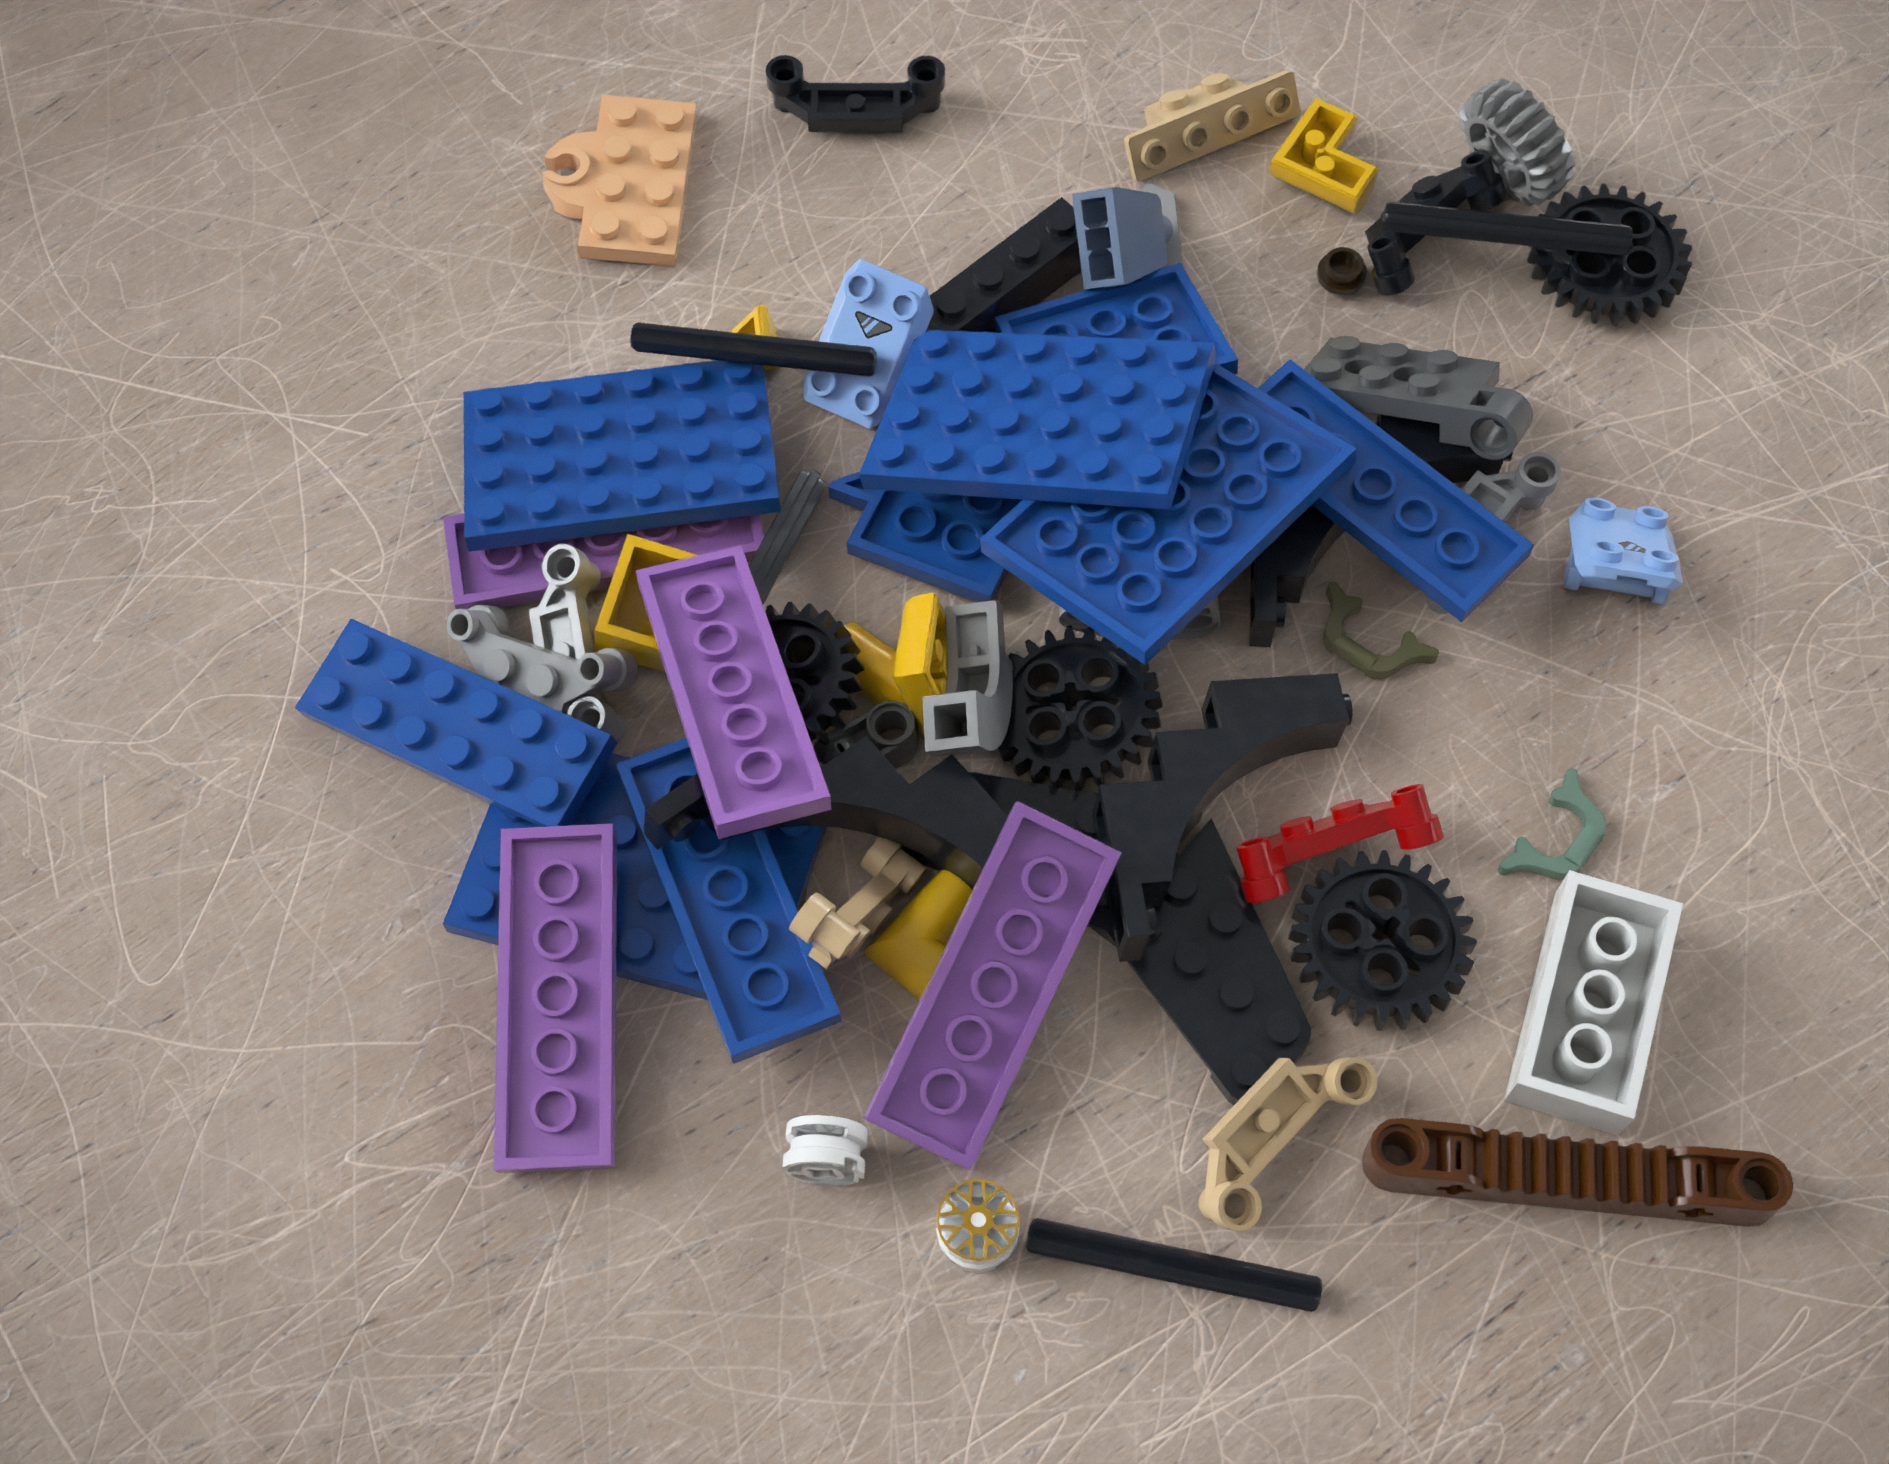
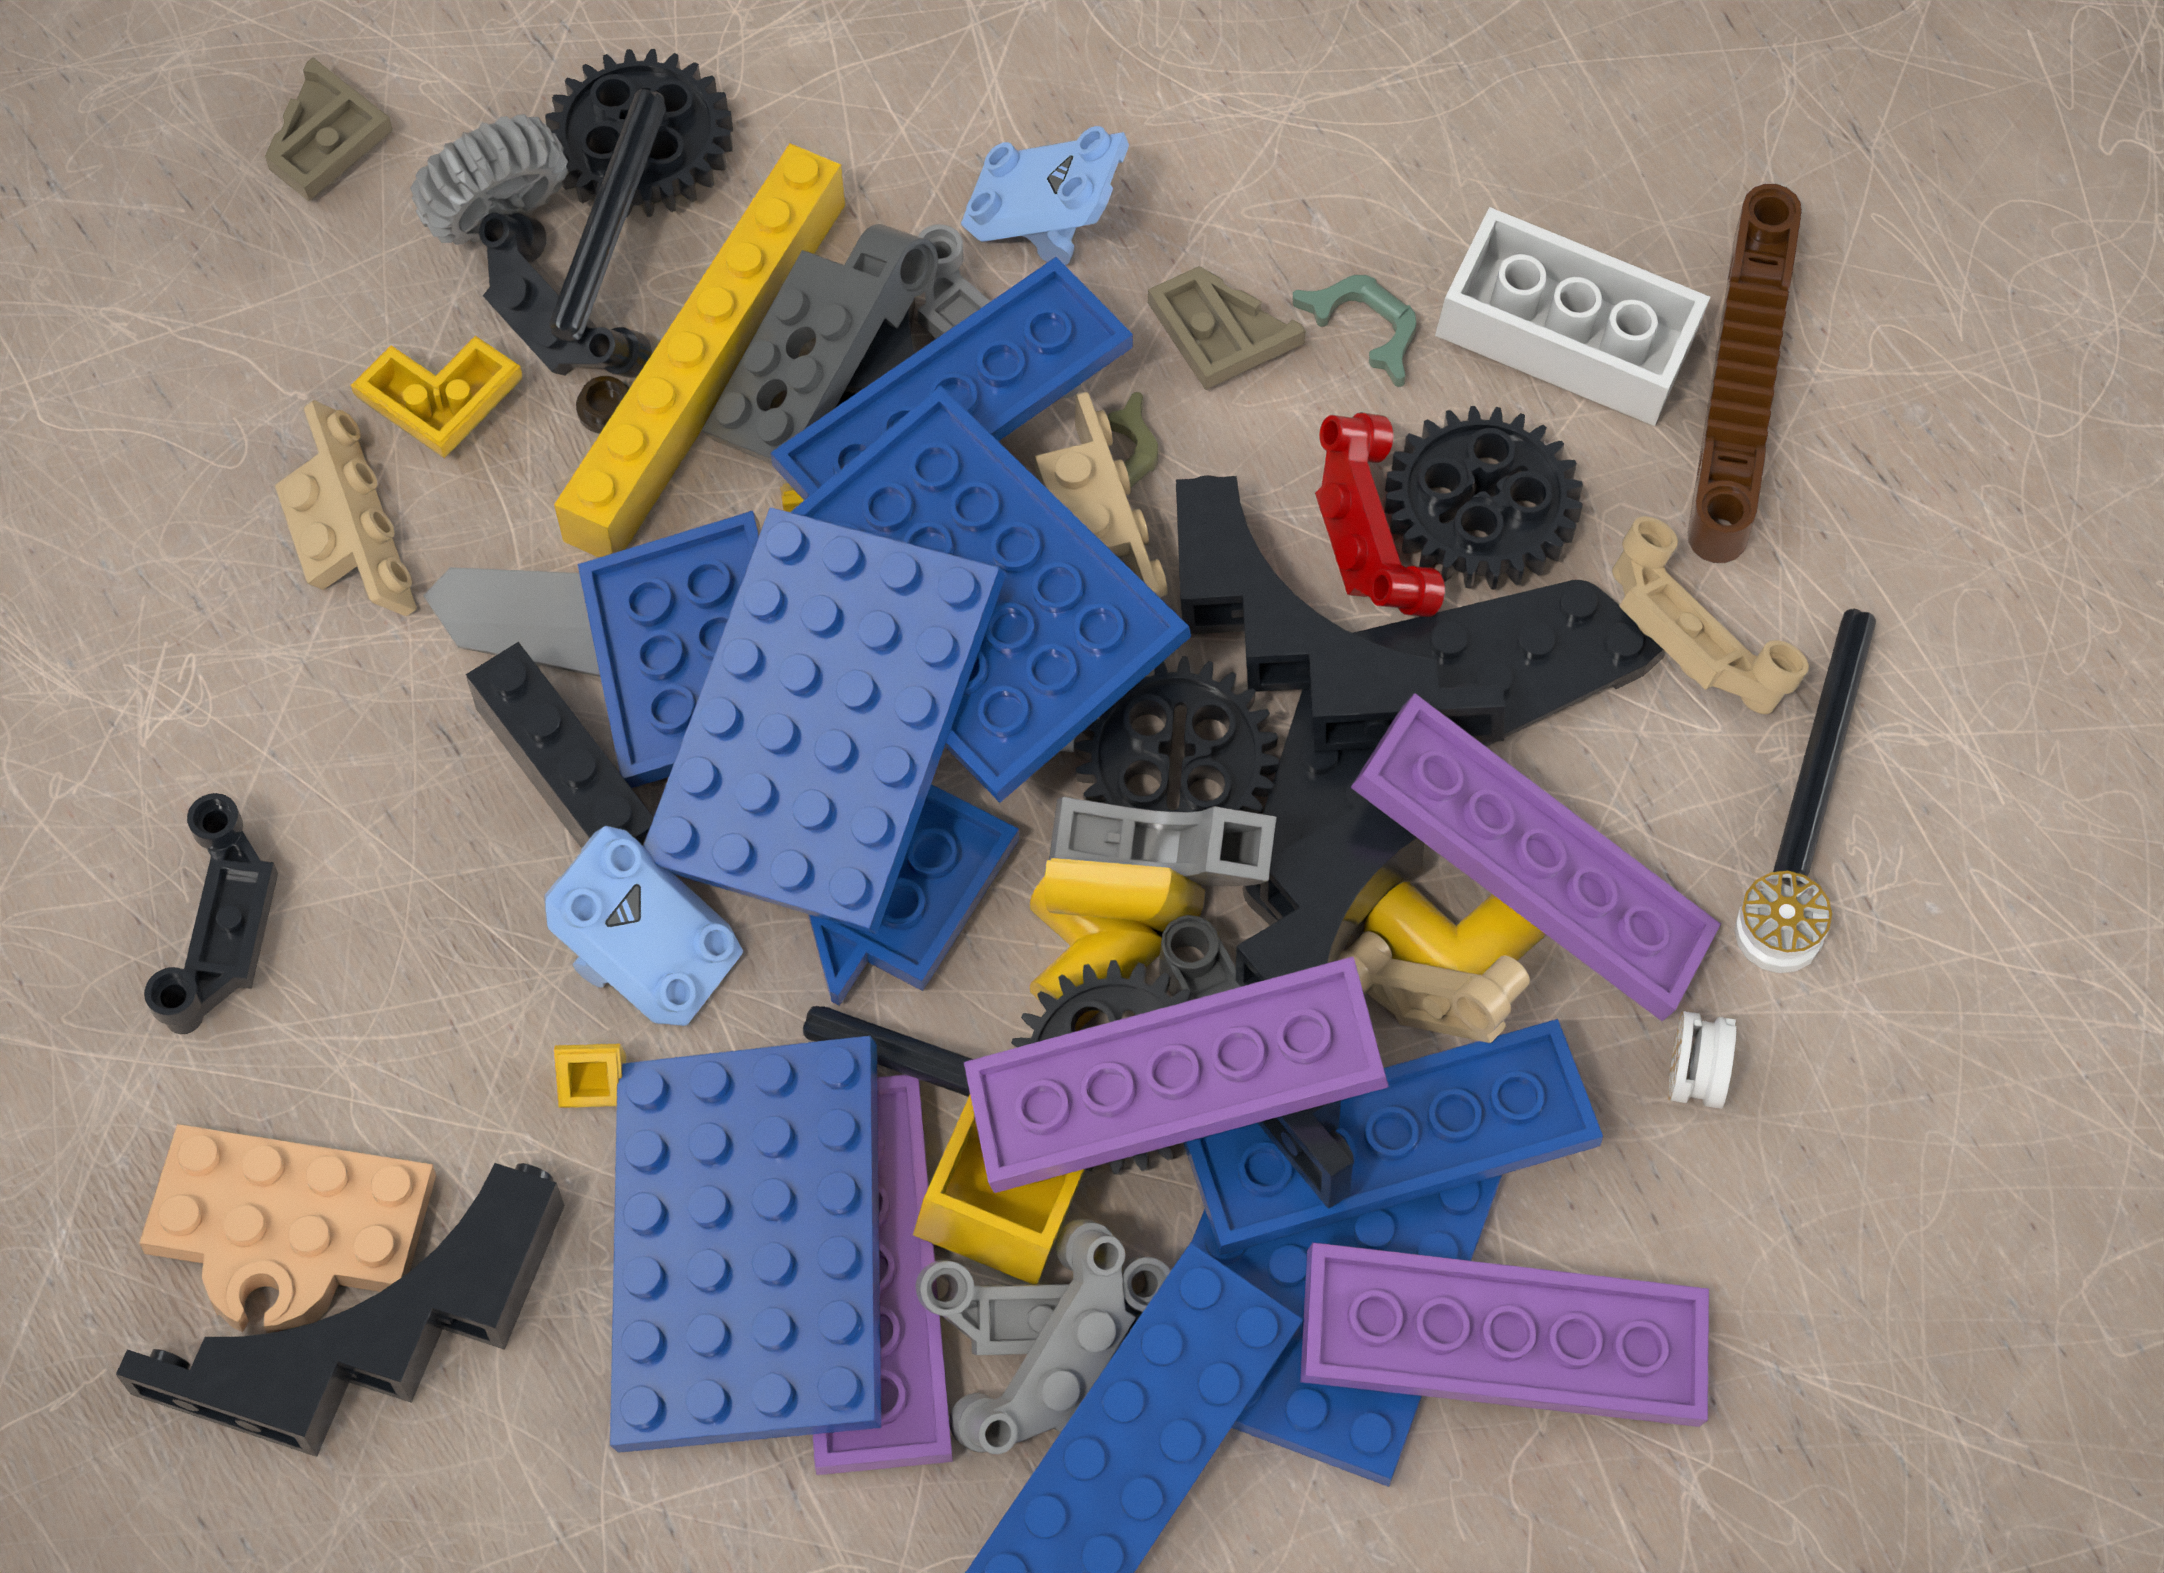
camera: 85 degrees left, 0 degrees up
(577, 286) = (294, 1379): none -> black arch
(753, 349) = (629, 1061): black axle -> none
(1120, 235) = (529, 614): sand blue torso -> none
(1296, 612) = (1096, 492): none -> tan bracket
(1337, 301) = (698, 355): none -> yellow brick
(1519, 708) = (1219, 327): none -> dark tan wing
(1553, 51) = (324, 132): none -> dark tan wing

